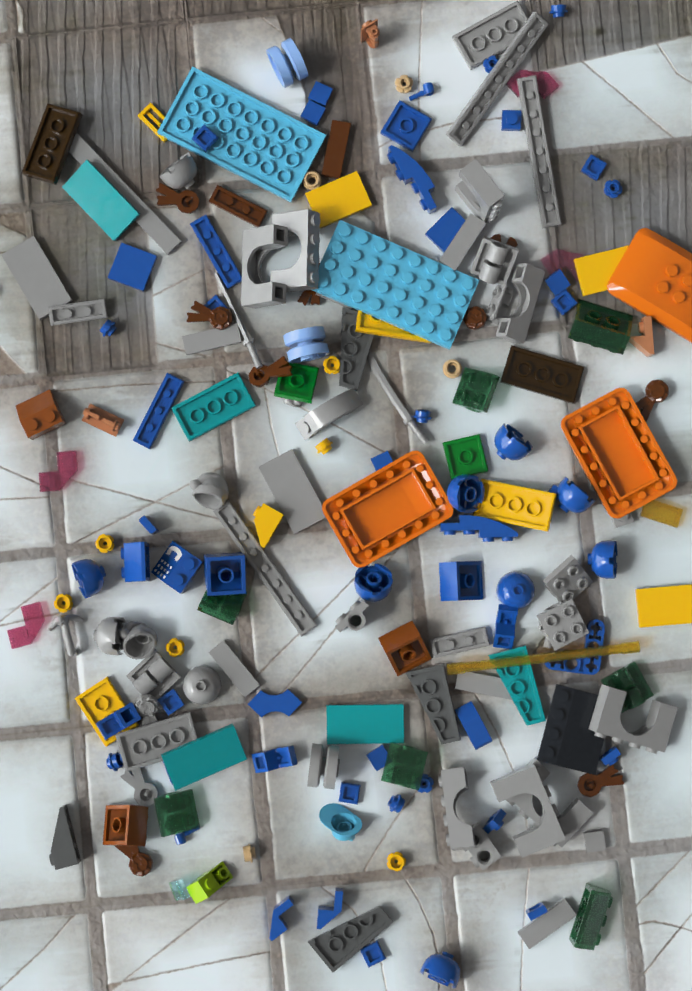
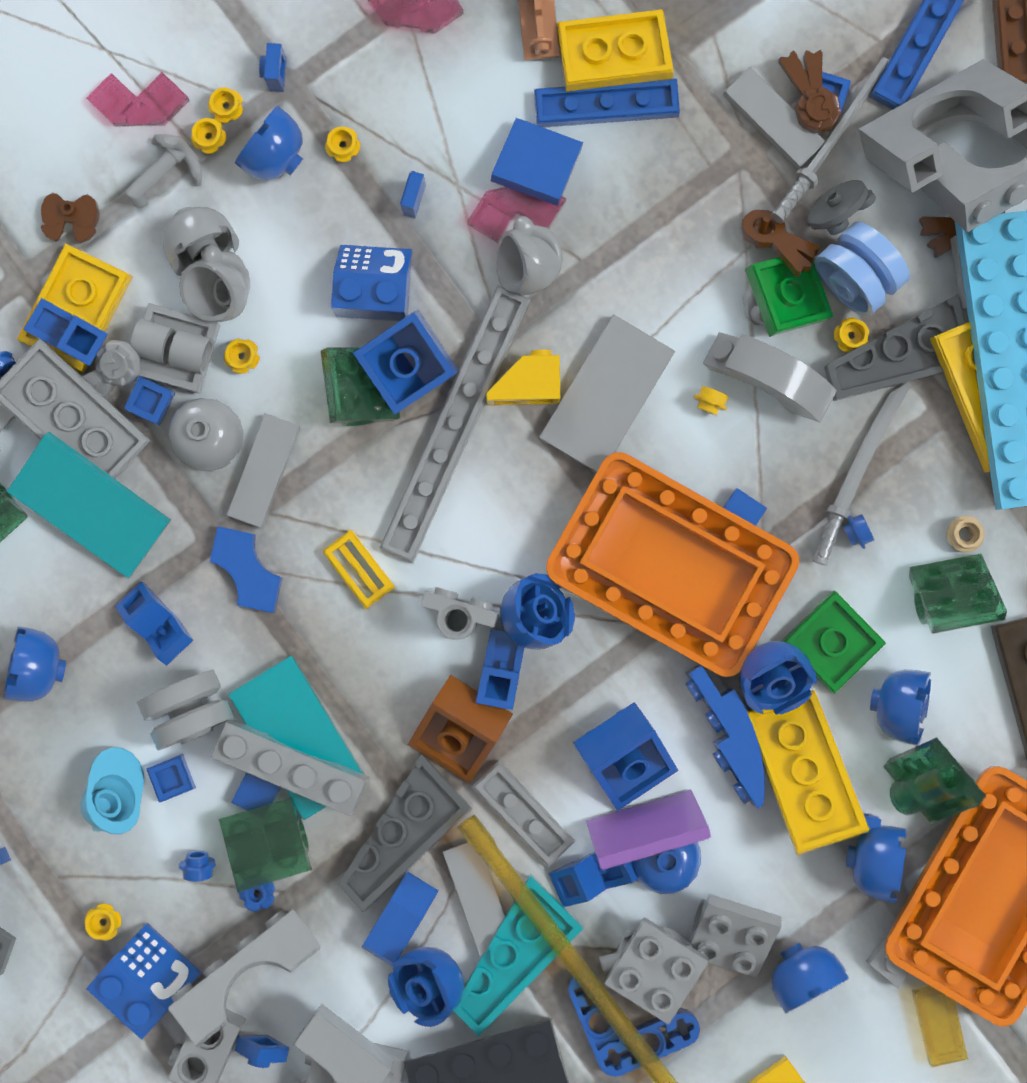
camera: 60 degrees right, 0 degrees up
(49, 586) = (221, 96): none -> yellow plate
(50, 554) = (273, 67): none -> blue plate
(64, 683) = (82, 214): none -> reddish brown piece
(136, 562) = (341, 210): blue slope -> none
(137, 393) = (614, 50): none -> yellow tile
(167, 459) = (536, 161): none -> blue tile
(182, 473) = (502, 204): none -> clear pink tile
(213, 407) = (666, 186): teal tile -> none
(261, 825) = (33, 666): none -> blue cylinder
(270, 336) = (839, 204): none -> dark grey piece
(321, 649) = (377, 593): none -> yellow tile
(376, 734) = (289, 768): none -> light grey arch
(389, 614) = (500, 671): none -> blue slope
(433, 857) = (142, 980): none -> blue slope
(498, 590) = (647, 829): none -> medium lavender tile
(509, 730) = (426, 985): none -> blue cylinder
(552, 453) = (931, 782): none -> clear green plate

